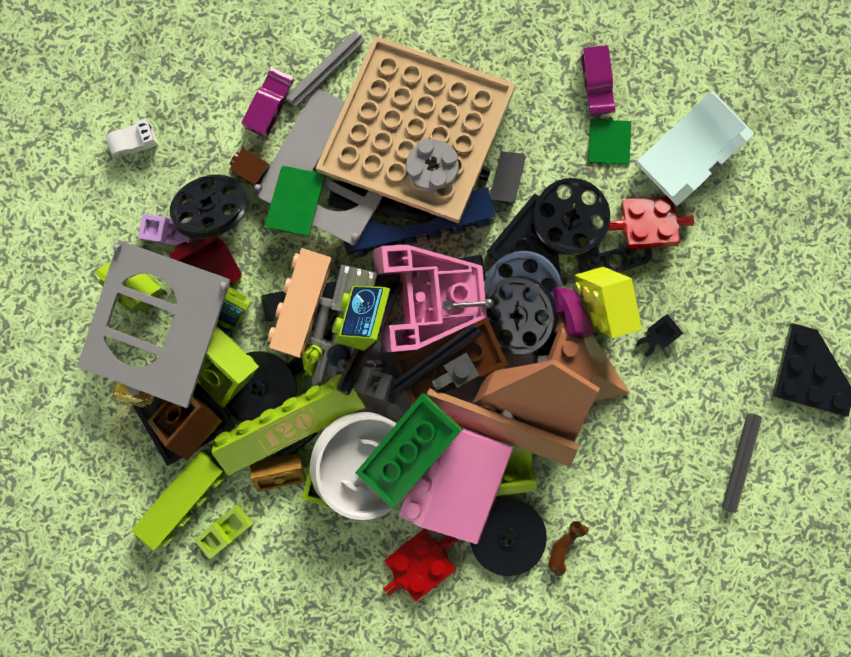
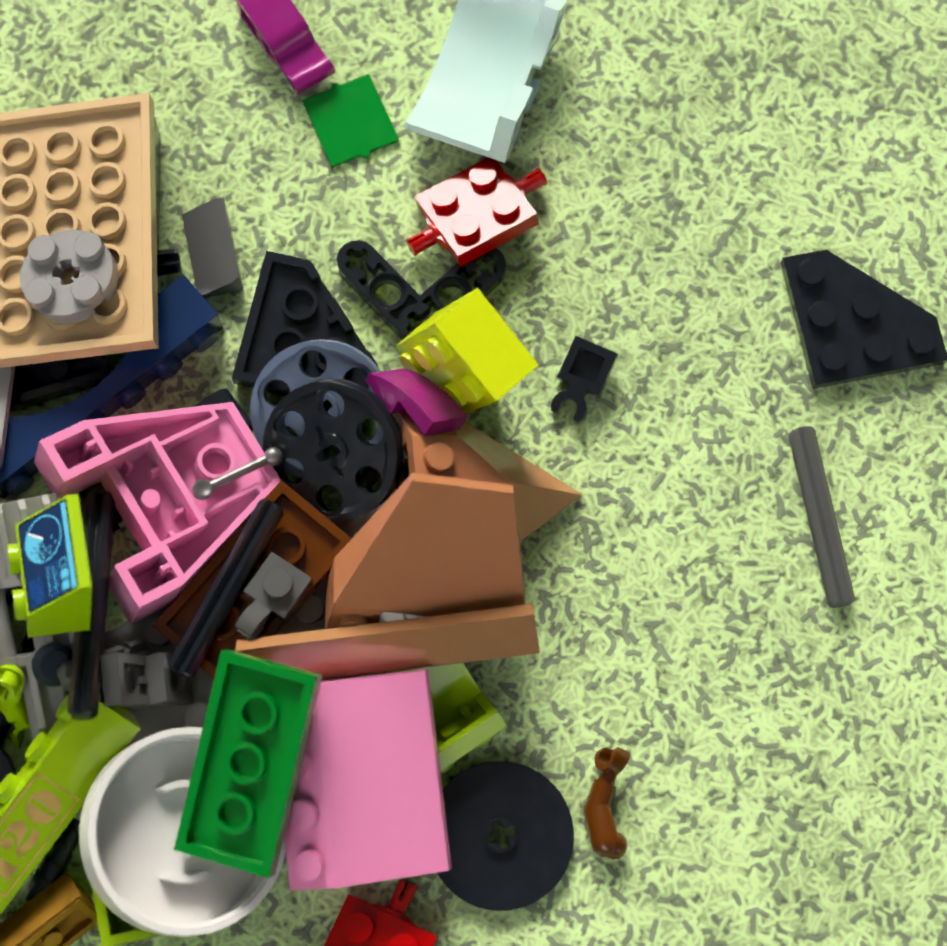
camera: 30 degrees left, 10 degrees down
(581, 210) = (328, 272): black wedge -> none

